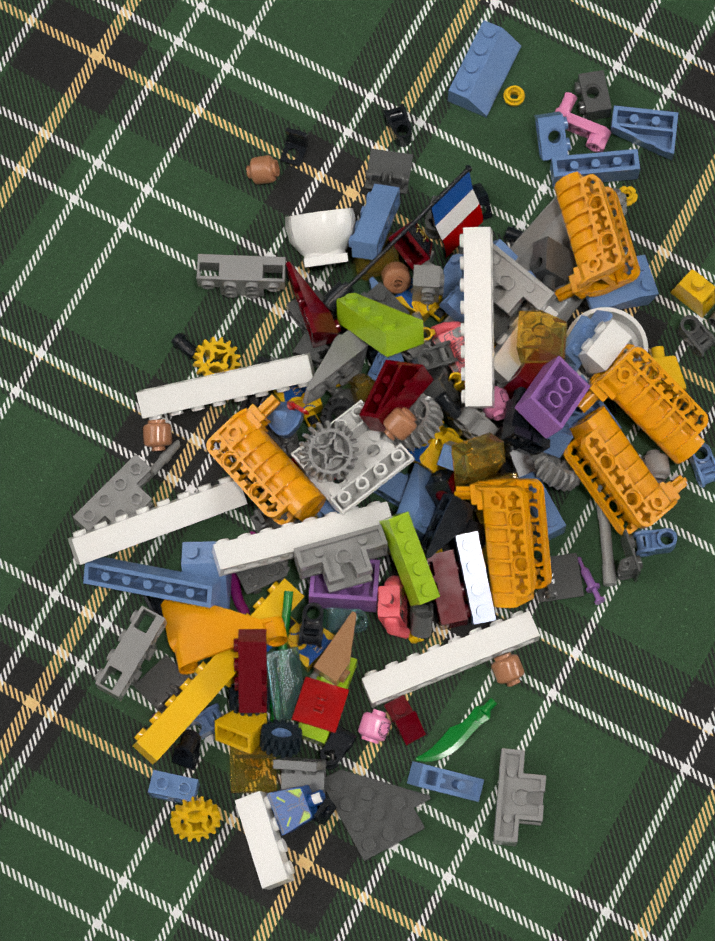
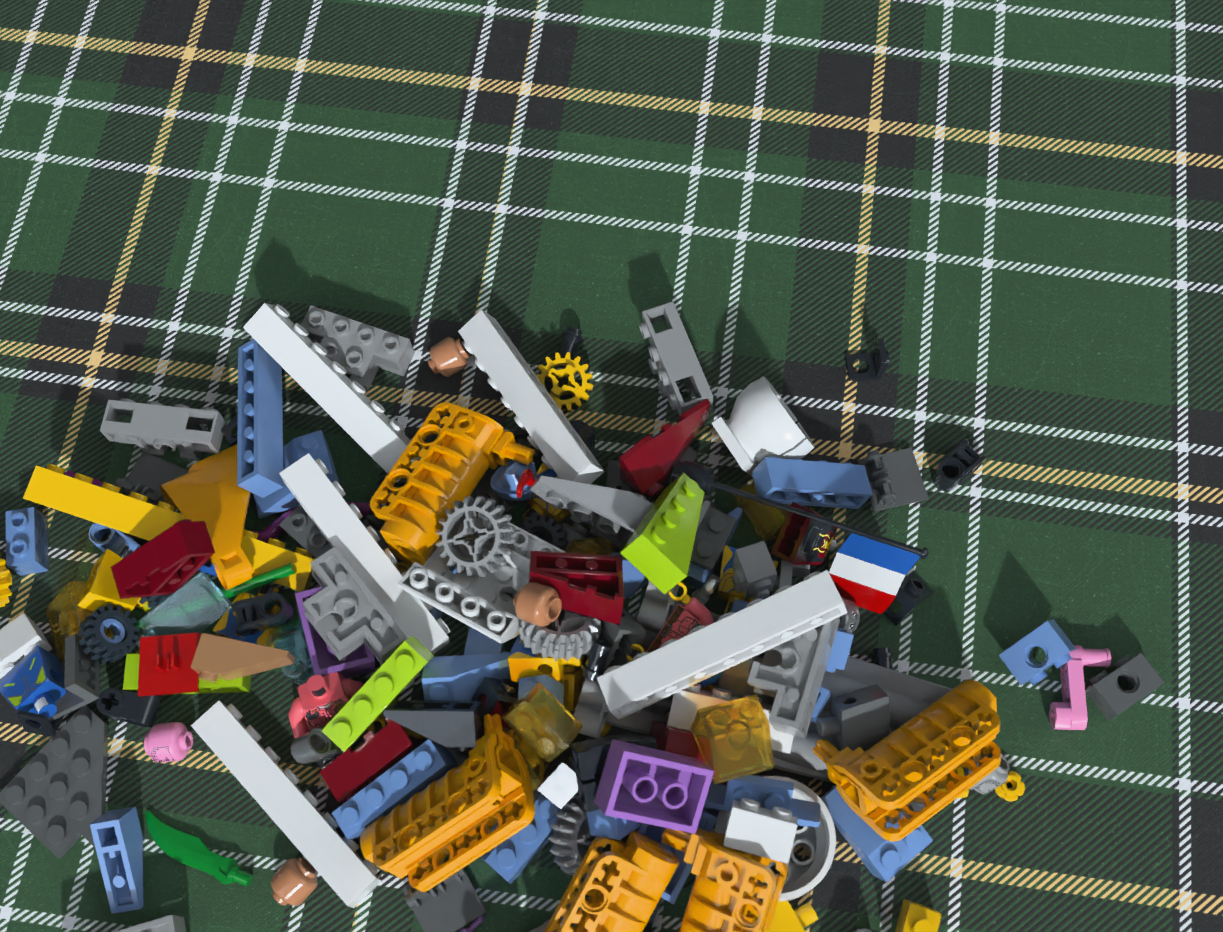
camera: 70 degrees right, 5 degrees down
(165, 457) = (427, 377): light grey piece -> none
(188, 751) = (71, 538): black piece -> none
(263, 169) = (822, 339): nougat head -> none
(396, 277) = (751, 531): nougat head -> none
(405, 720) = (190, 778): dark red slope -> none
(438, 356) = (653, 617): dark grey piece -> none
(484, 69) = (1085, 536): medium blue slope -> none
(499, 411) = (639, 722): bright pink head -> none
(514, 90) = (1072, 580): yellow plate -> none
(605, 165) = (1026, 728): medium blue brick -> none
(646, 128) = (1115, 773): medium blue wedge -> none

